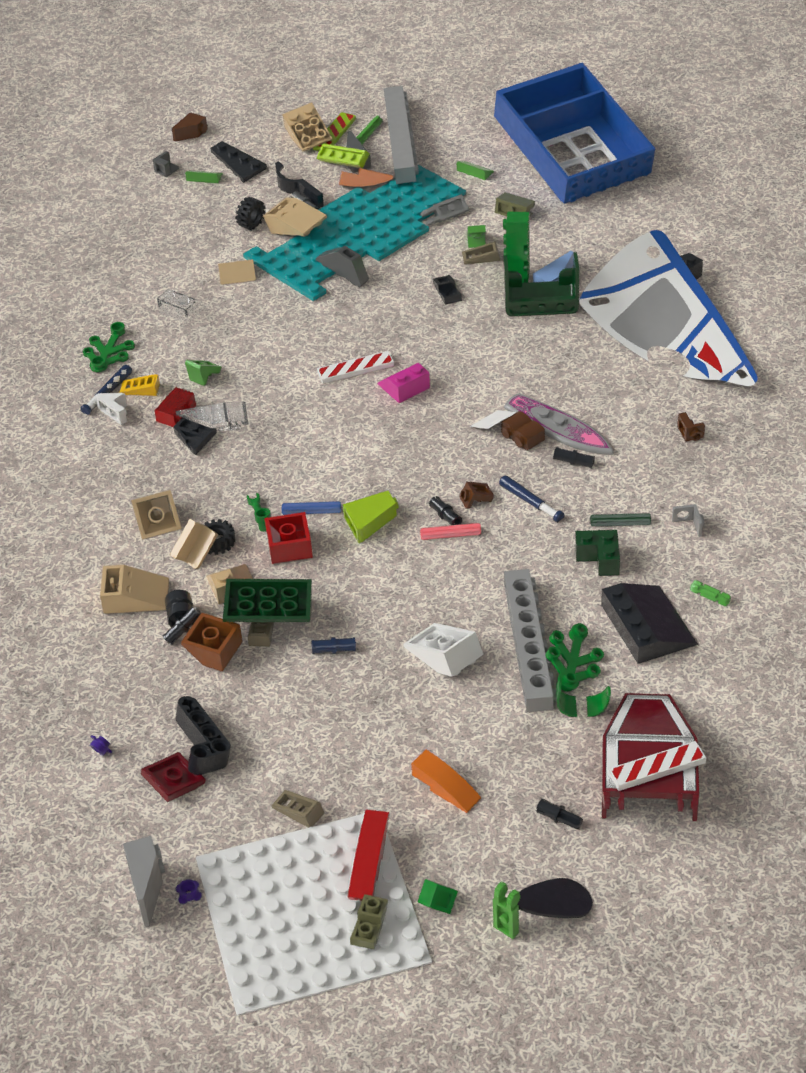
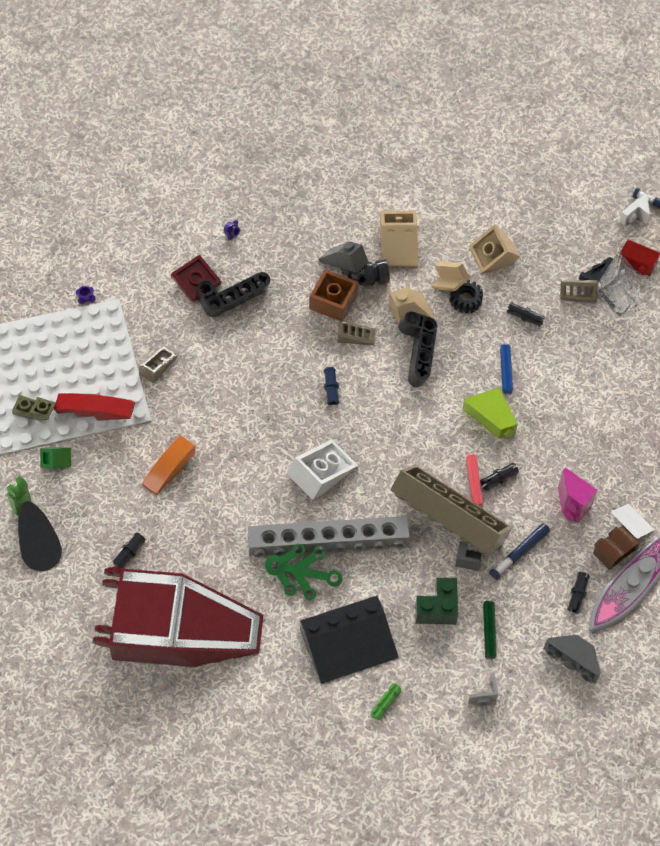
camera: 85 degrees right, 15 degrees up
(145, 872) = (88, 260): light grey slope -> none
(159, 630) = (346, 256): none -> dark grey slope
(215, 441) = (587, 283): none -> dark tan slope
(242, 491) = (525, 314): none -> black pin
(260, 513) = (487, 327): green brick -> none
(268, 600) = (368, 330): dark green slope -> none
(288, 537) = (458, 347): red slope -> none
(290, 566) = (424, 333): none -> black beam
(472, 450) = (575, 495): none -> dark pink slope
(475, 492) = (524, 502): reddish brown bracket -> none
(494, 538) = (451, 509): none -> dark tan brick
(542, 536) = (467, 558): none -> dark grey panel
(595, 704) = (250, 564): green piece -> none
(642, 457) = (576, 654): none -> dark grey slope
(657, 765) = (138, 611): white tile -> none
(688, 429) = (628, 703): reddish brown bracket -> none

